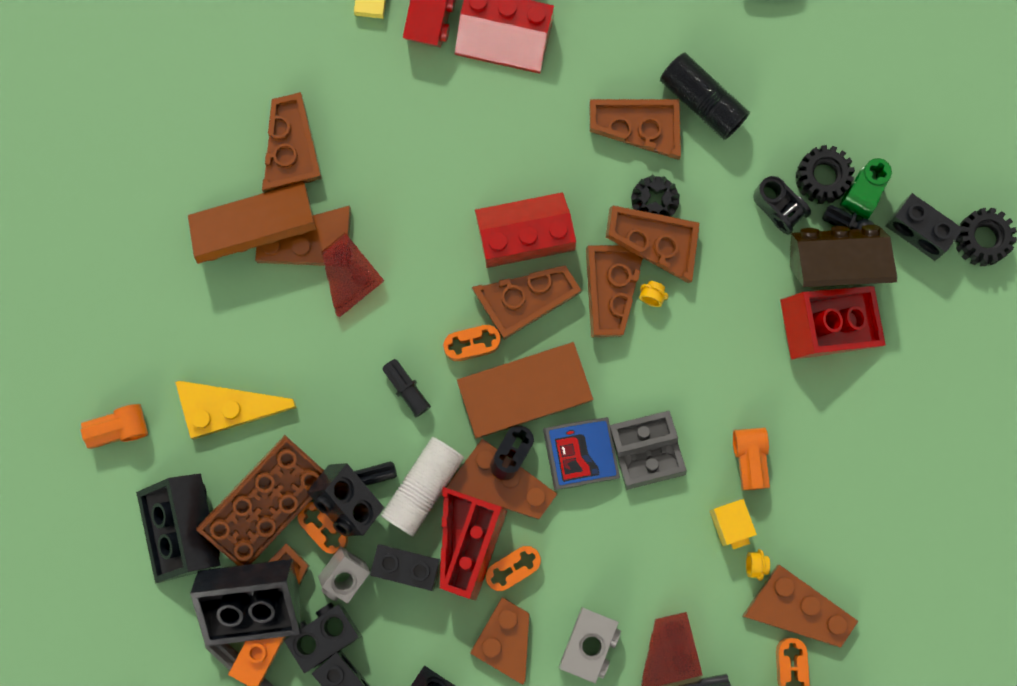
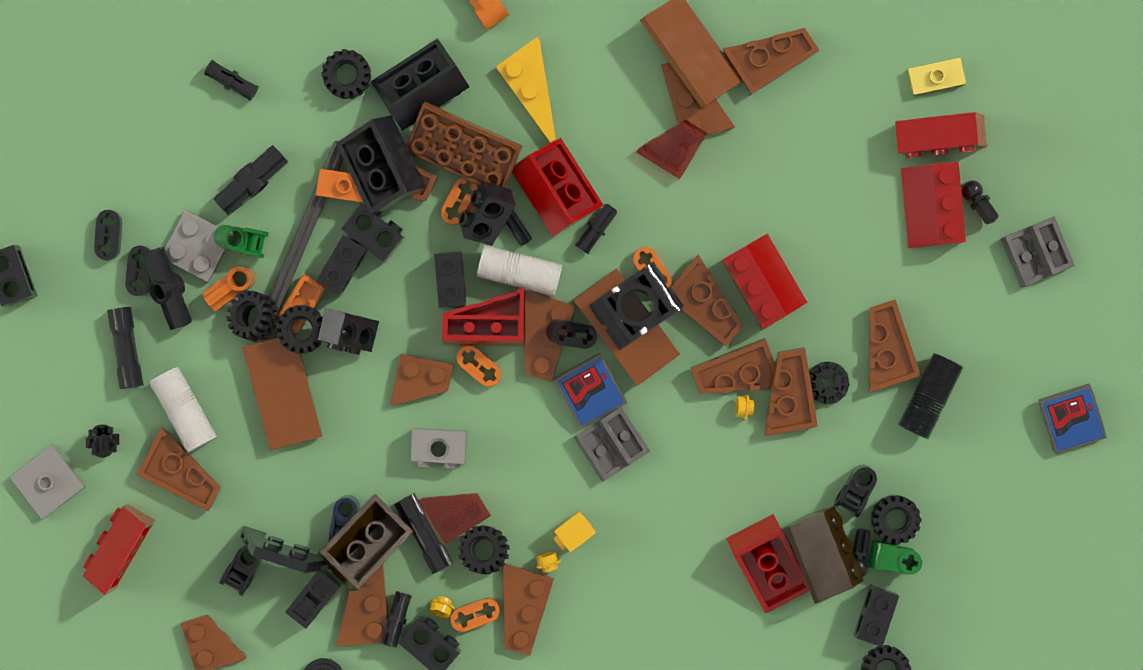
camera: 75 degrees right, 10 degrees up
(117, 602) = (346, 90): none -> black tyre
(343, 562) = (436, 226): light grey brick -> none
(344, 416) = (556, 186): none -> red slope
(512, 339) = (662, 299): none -> black piece
(717, 652) = (499, 549): none -> black tyre
(751, 450) = (637, 529): orange piece -> none

